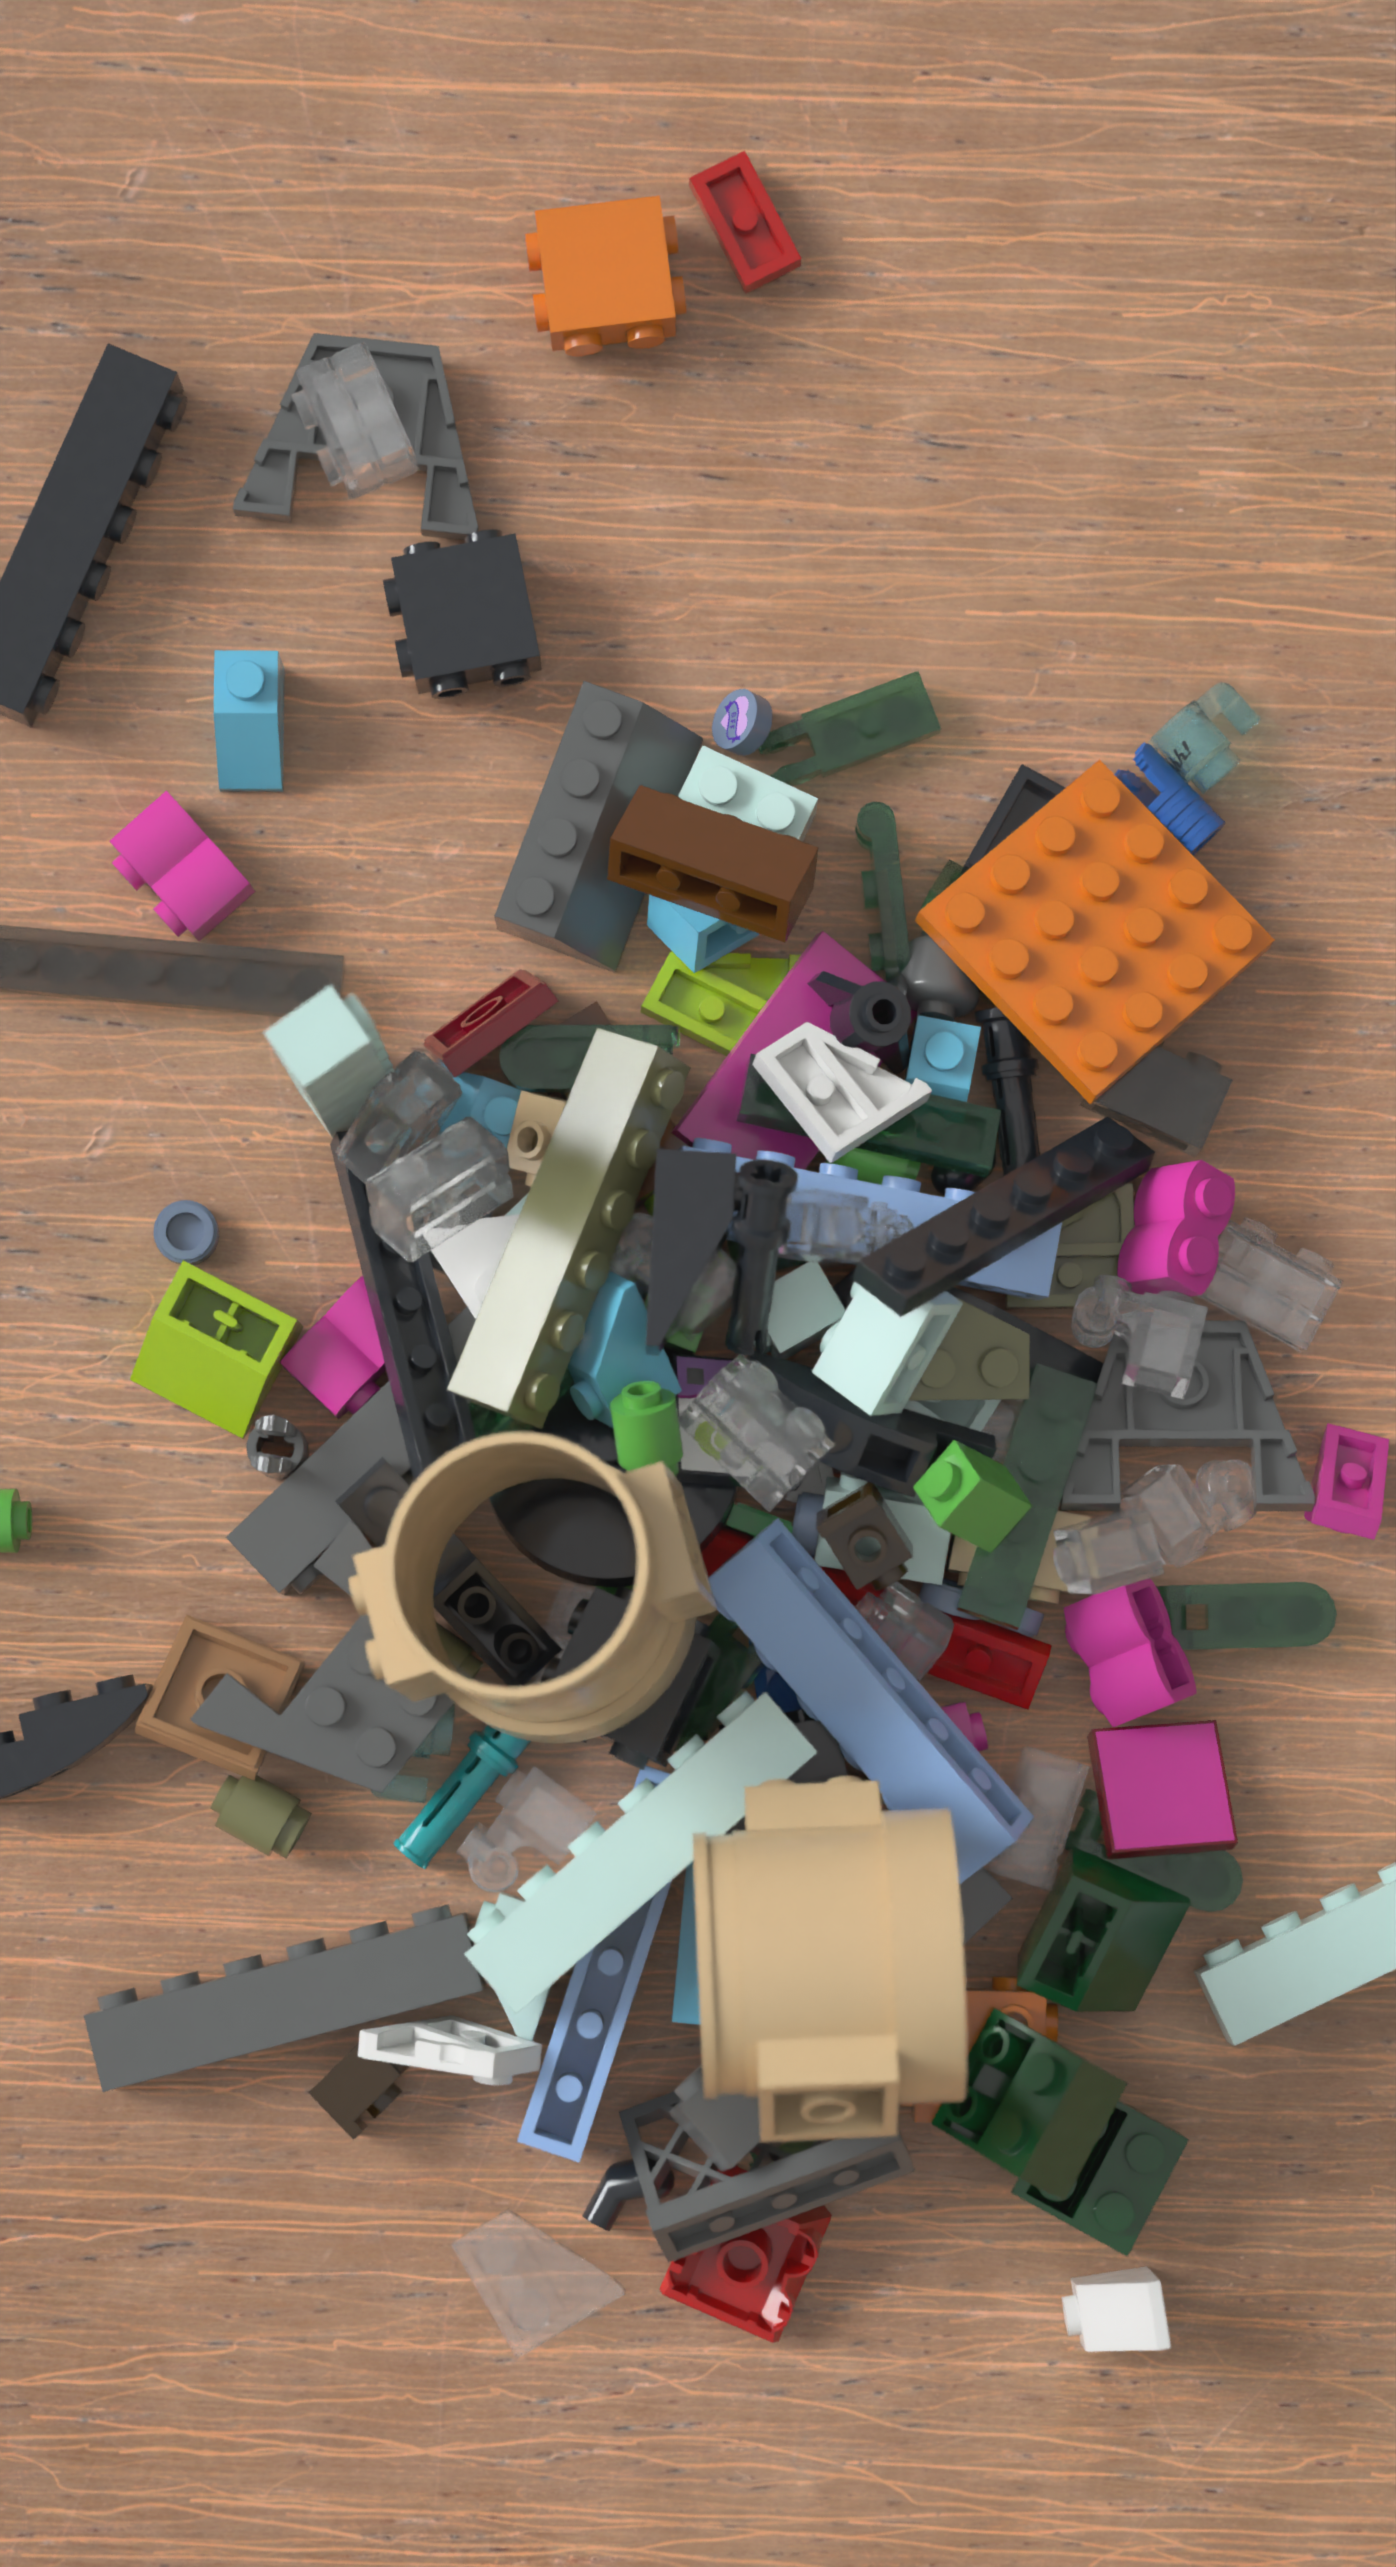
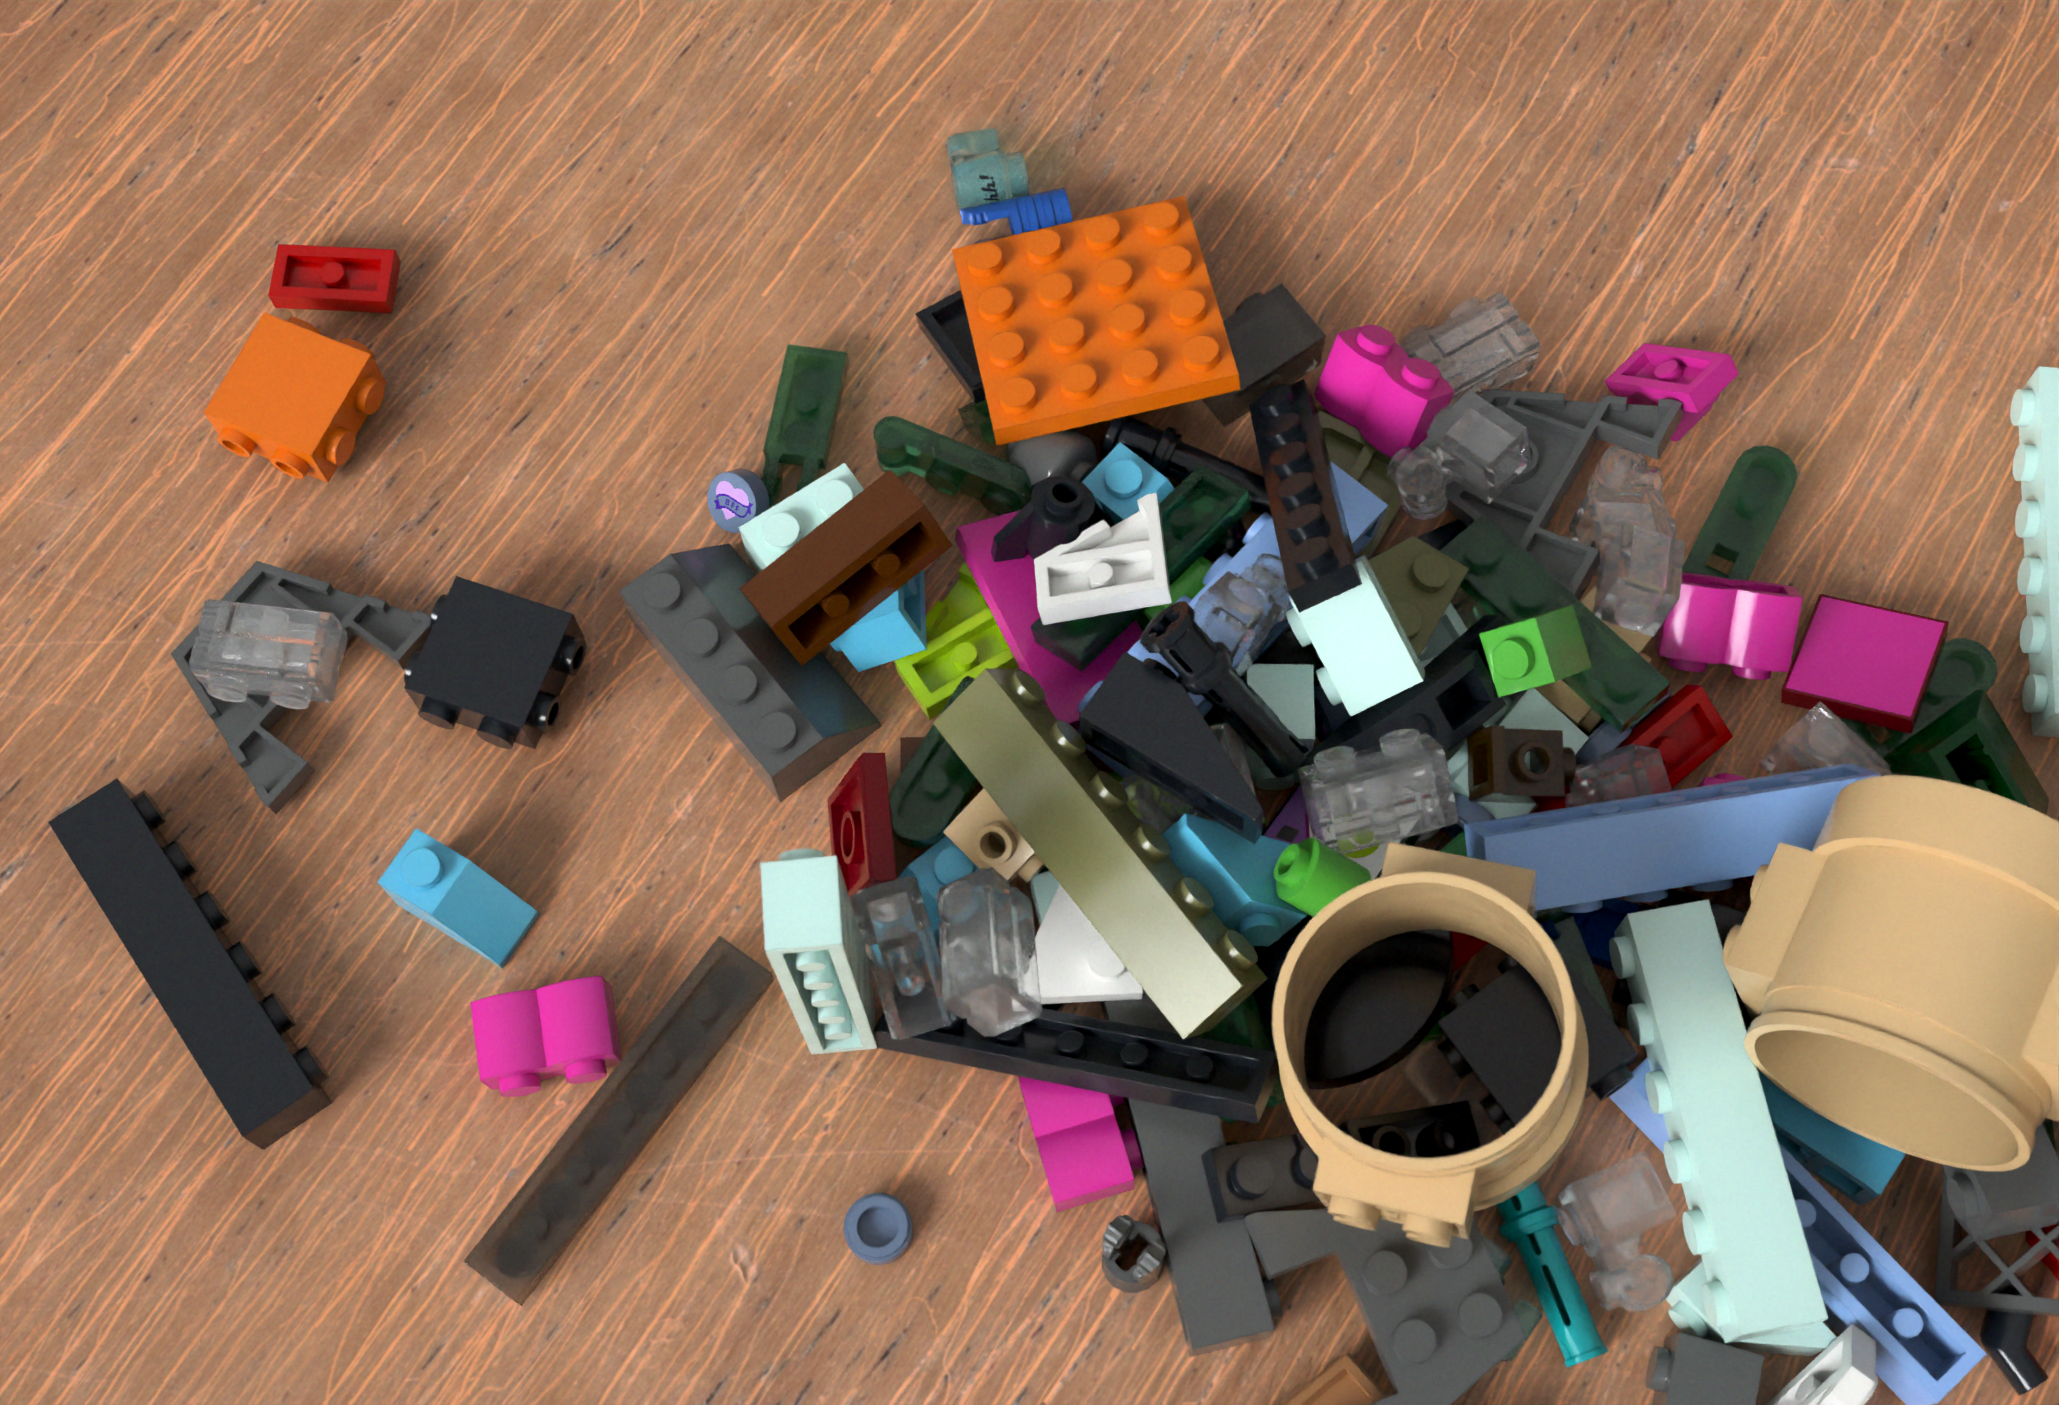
camera: 55 degrees left, 15 degrees down
(214, 1349) = (1006, 1258): lime slope -> none

